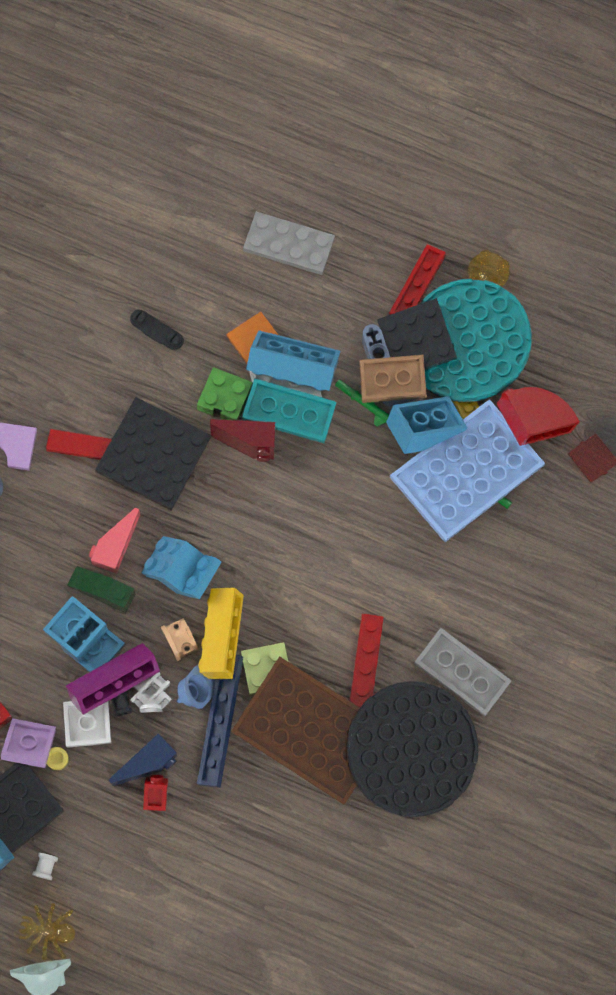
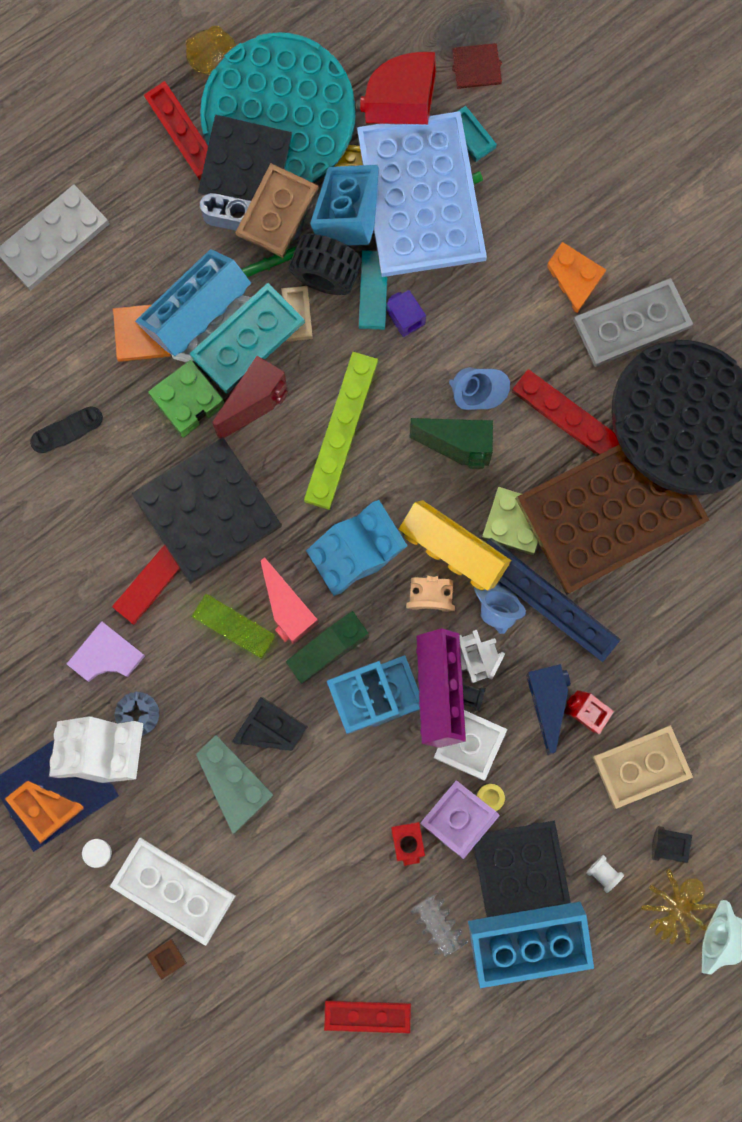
camera: 55 degrees left, 5 degrees up
(24, 580) = (270, 728): none -> black wing
(82, 517) = (233, 626): none -> clear neon green tile
(91, 903) = (671, 845): none -> black tile
(136, 853) = (642, 767): none -> tan plate
(263, 512) = (341, 430): none -> lime plate
(301, 600) = (458, 439): none -> dark green slope
(338, 432) = (299, 300): none -> tan tile
(347, 589) = (479, 388): none -> medium blue piece
(372, 433) = (325, 264): none -> black tyre
(374, 508) = (405, 312): none -> dark purple brick
(375, 479) = (372, 293): none -> teal tile
(475, 612) = (575, 274): none -> orange wing
(538, 483) = (477, 139): none -> teal tile

